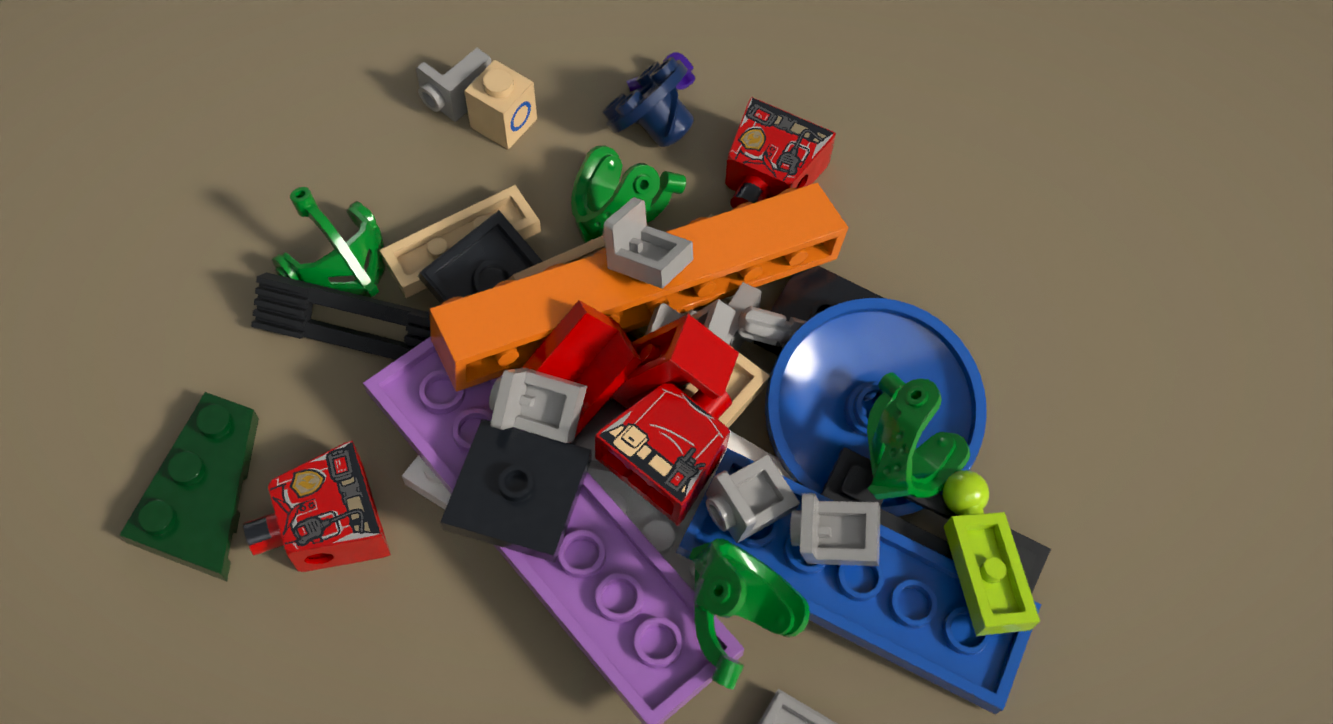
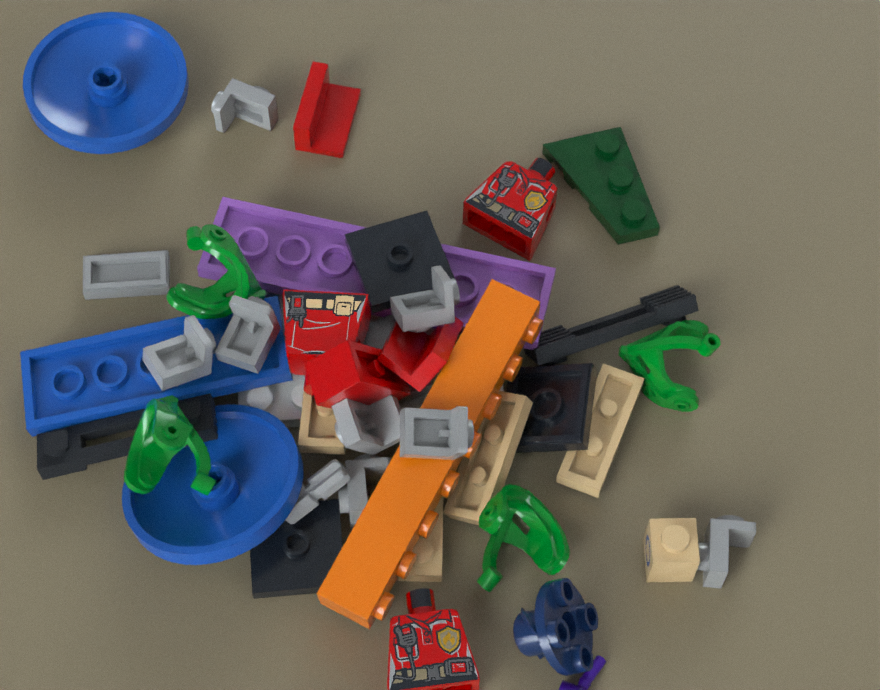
camera: 145 degrees right, 0 degrees up
(986, 559) = (77, 417): lime plate -> none

